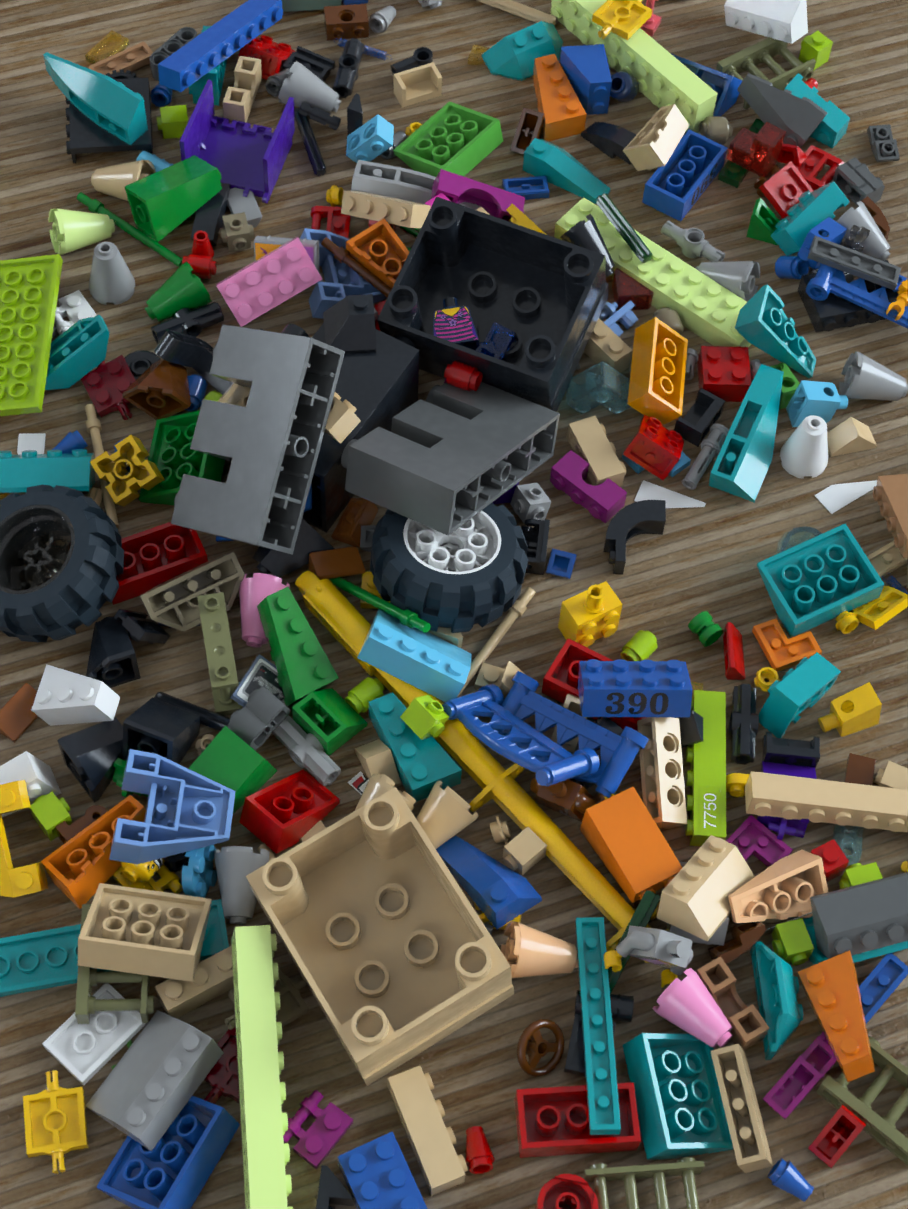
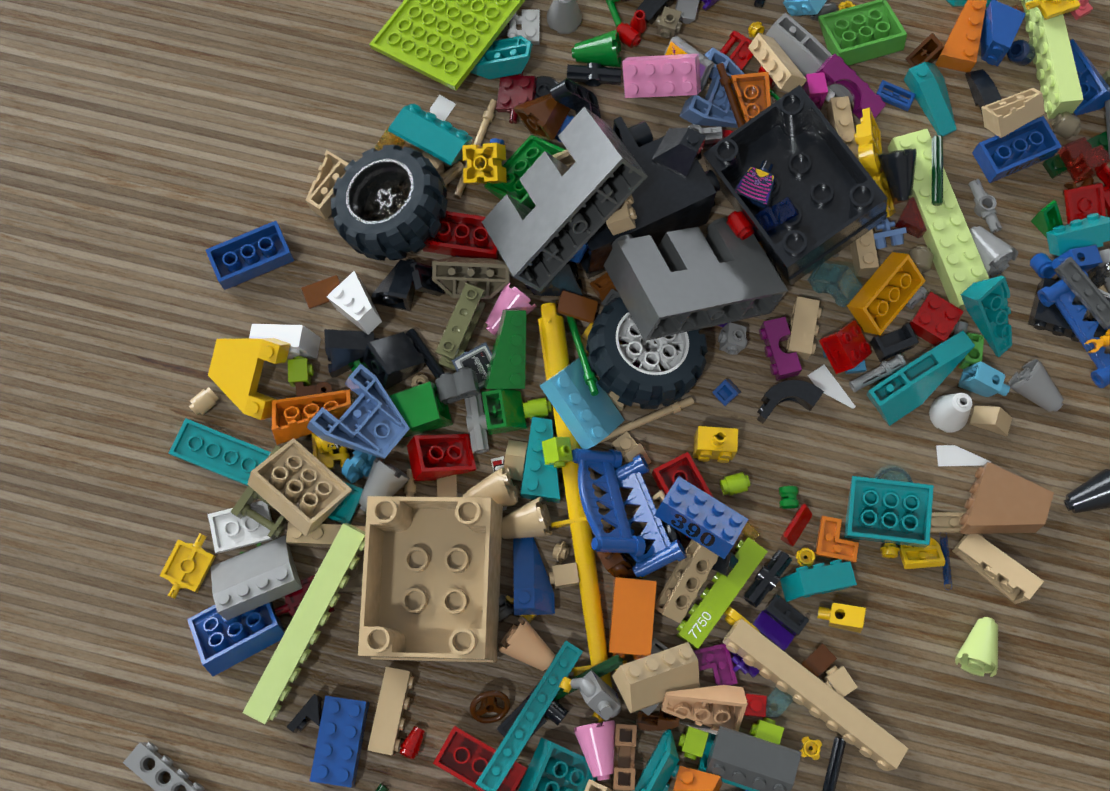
camera: 35 degrees right, 15 degrees up
(71, 442) = (465, 122): blue cone -> none
(322, 1135) = (332, 672): magenta plate -> none
(536, 540) = (715, 370): black hinge -> none

